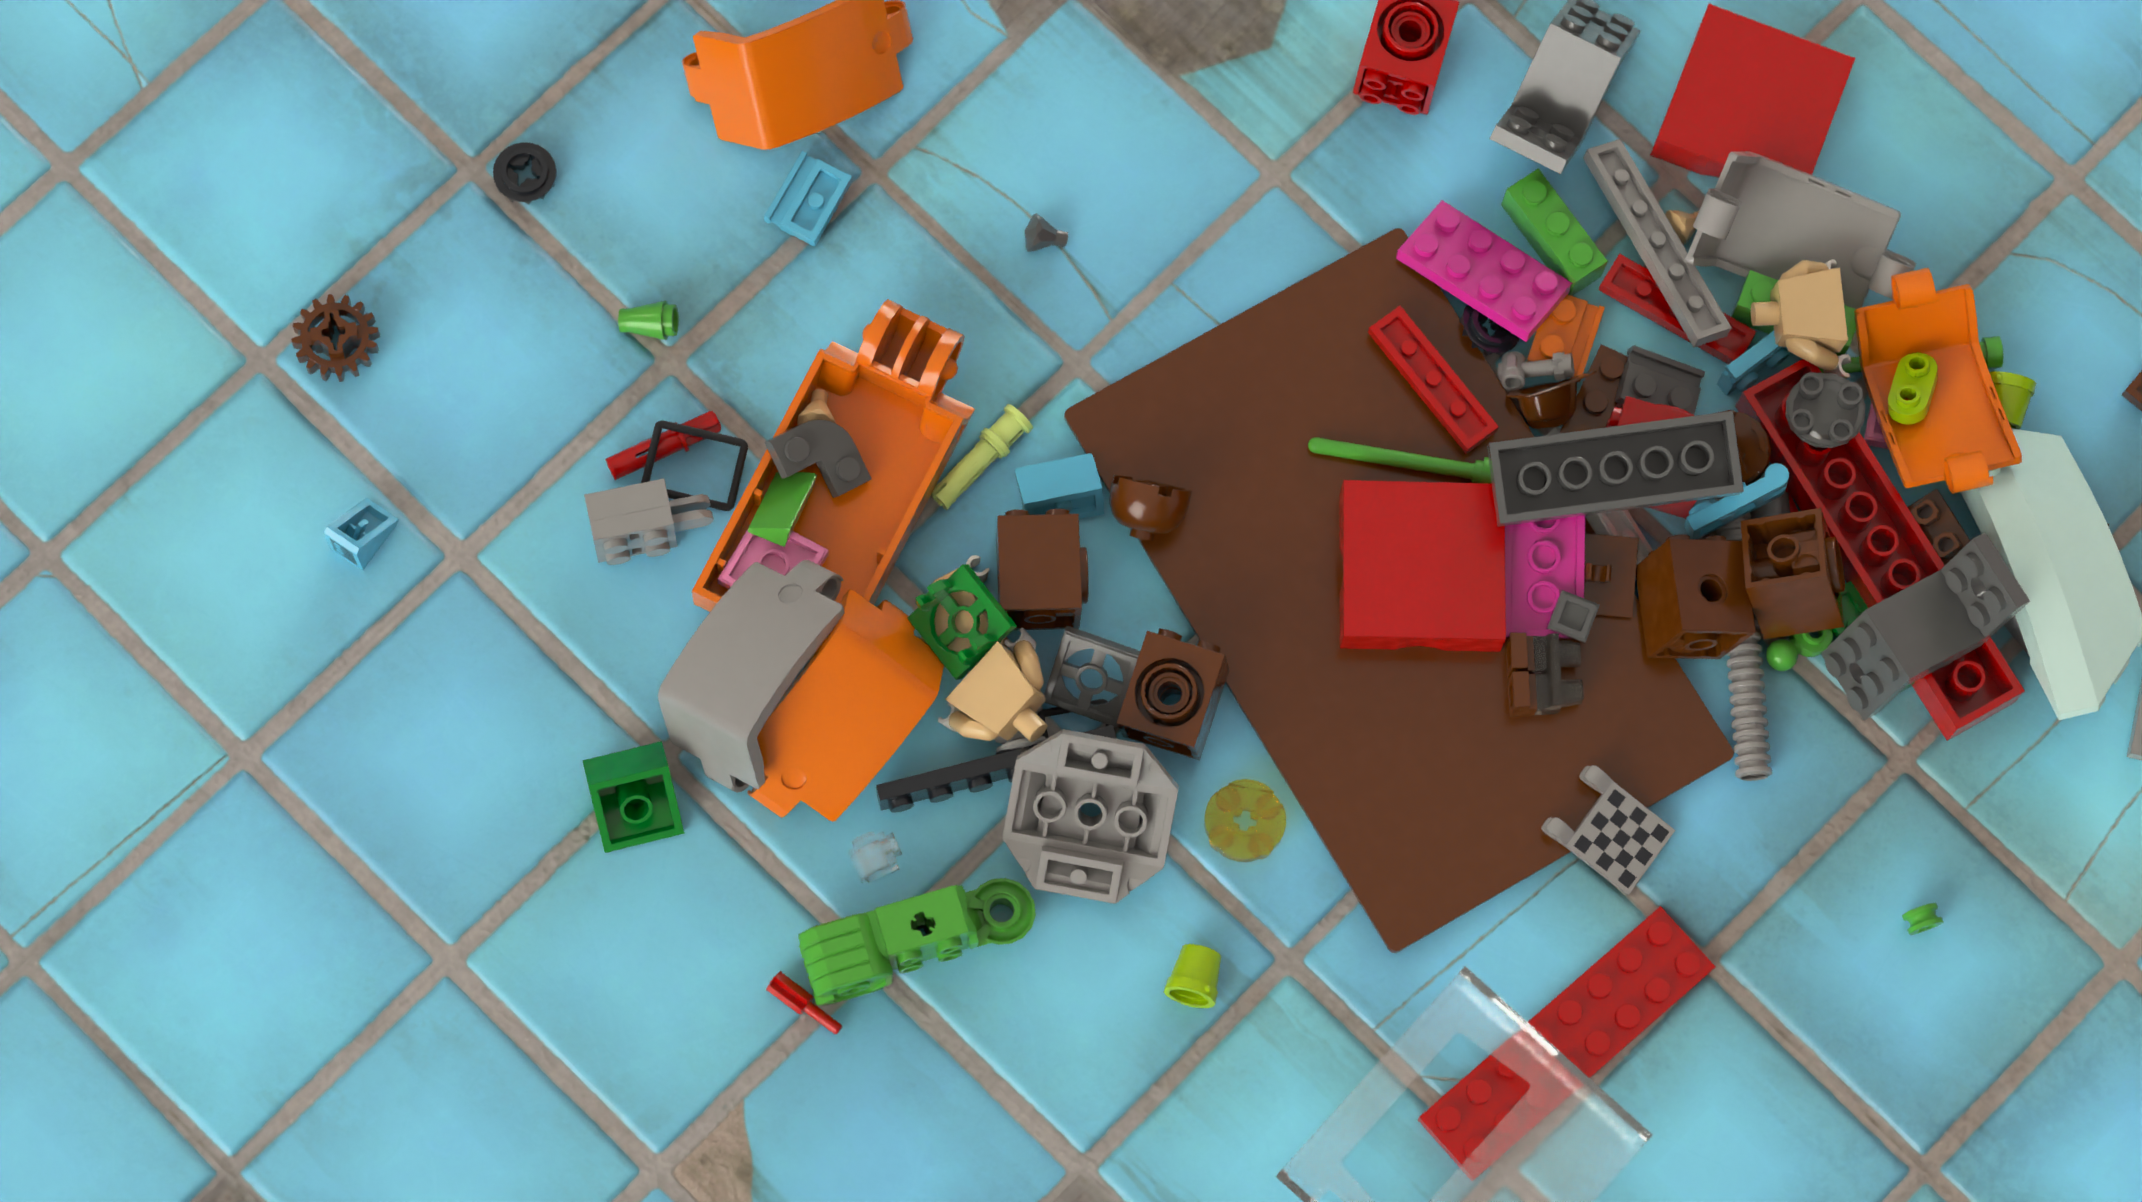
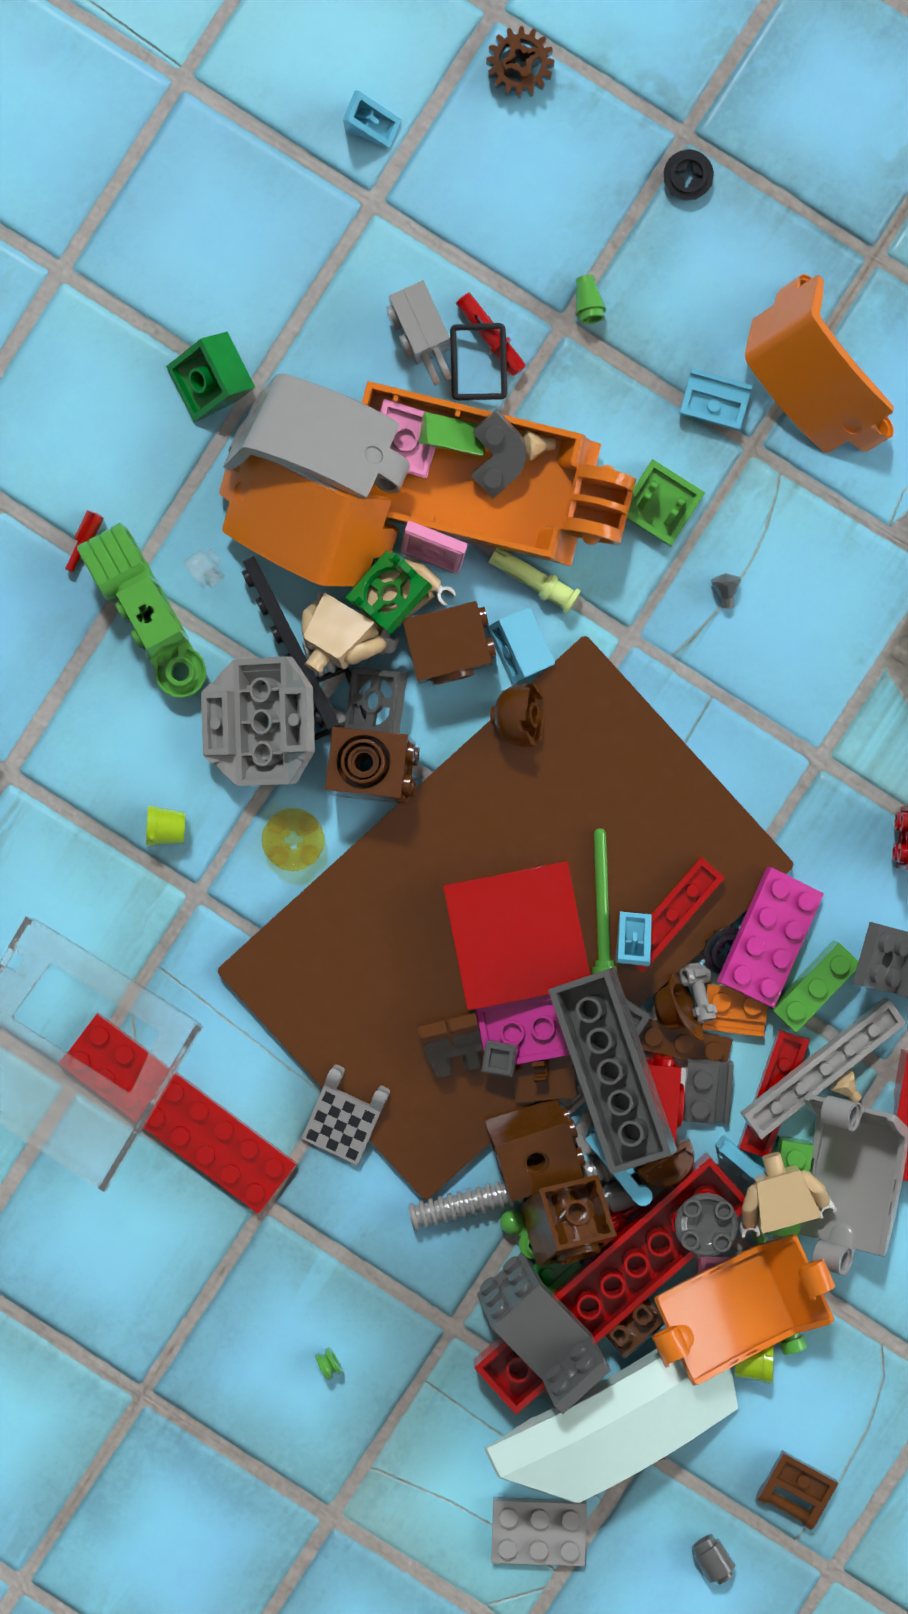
camera: 80 degrees right, 15 degrees up
(915, 563) = (433, 547): none -> bright pink plate
(922, 282) = (662, 502): none -> bright green plate
(1456, 423) = (633, 939): none -> medium azure slope
(1914, 385) = (745, 1288): lime plate -> none

